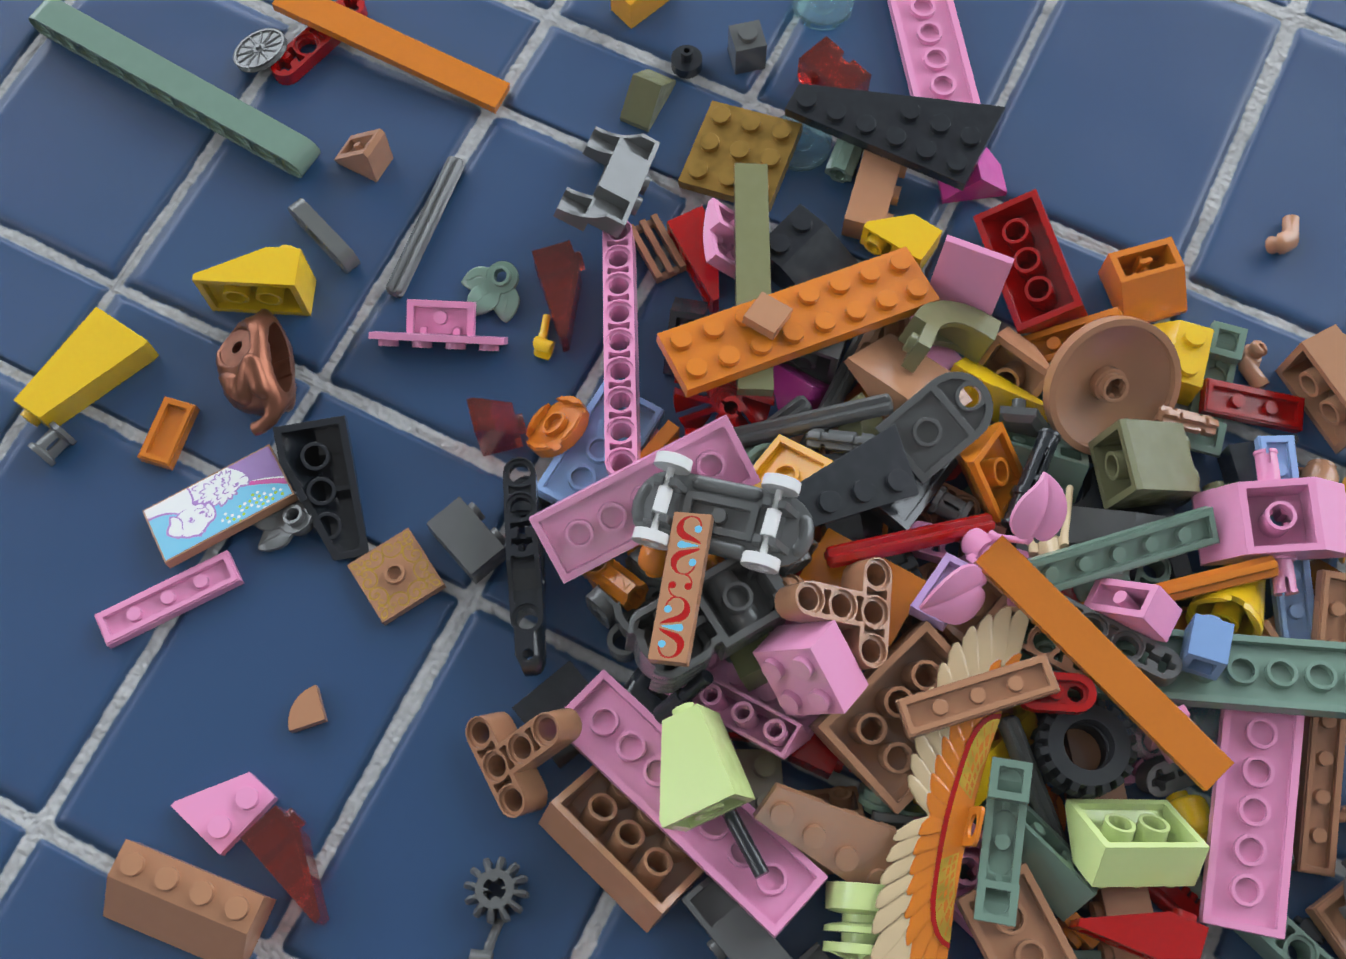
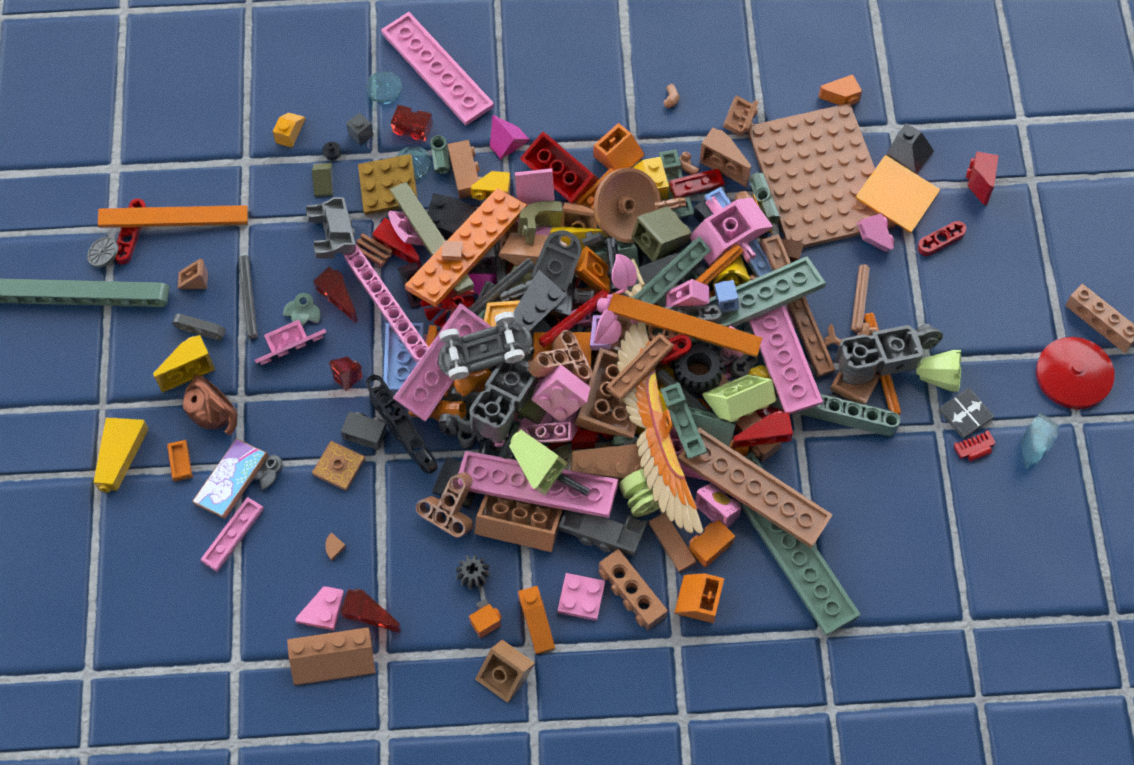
camera: 30 degrees left, 5 degrees down
(53, 452) = (124, 494): dark grey bush -> none
(324, 475) = (275, 436): black wedge -> none
(542, 346) = (344, 324): yellow hand -> none
(557, 427) = (376, 356): orange tile -> none
(681, 589) = (485, 386): nougat tile -> none
(917, 132) = (470, 131): black wing -> none

